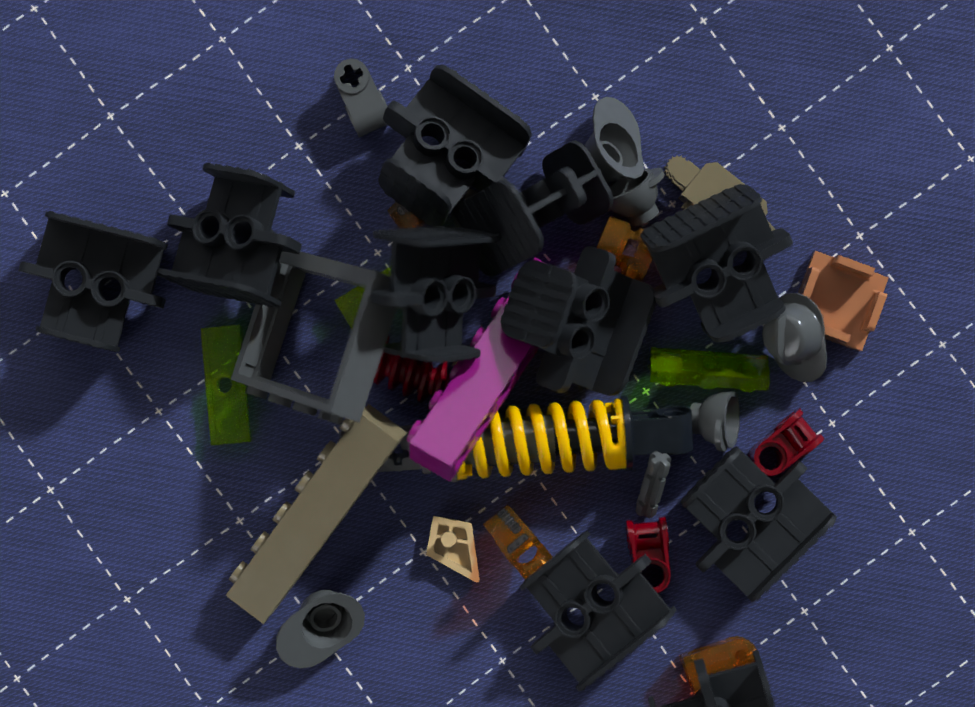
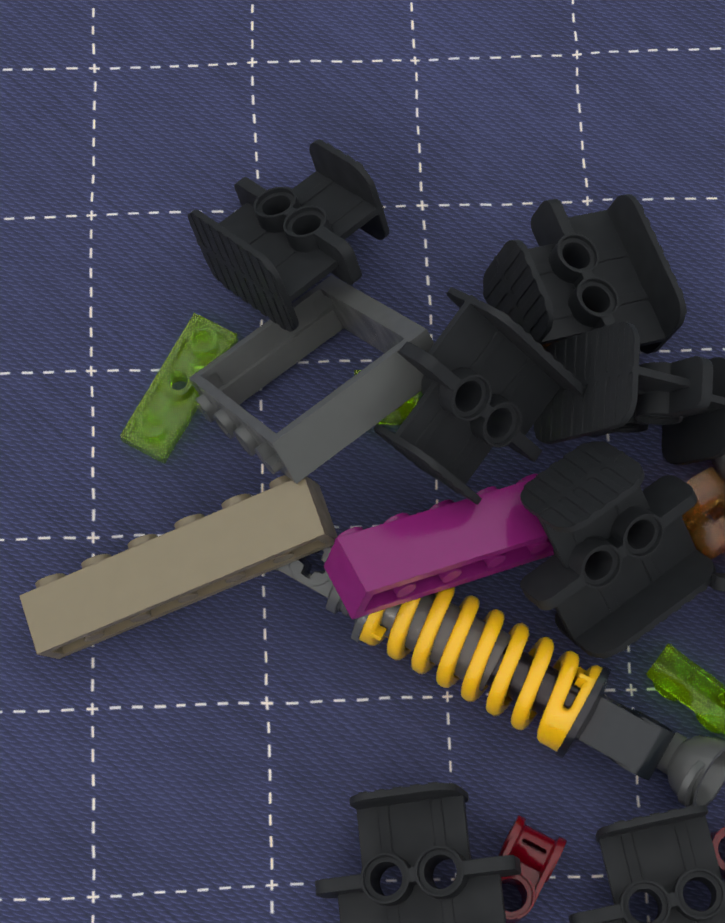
camera: 30 degrees right, 15 degrees down
(100, 256) = (146, 169): black piece -> none
(319, 628) = (93, 702): dark grey piece -> none
(363, 103) = (520, 191): dark grey piece -> none
(413, 375) = (376, 485): dark red piece -> none
(454, 546) = (305, 716): tan piece -> none
(516, 538) = (380, 748): clear orange leg -> none
(653, 484) = (577, 791): dark grey axle -> none

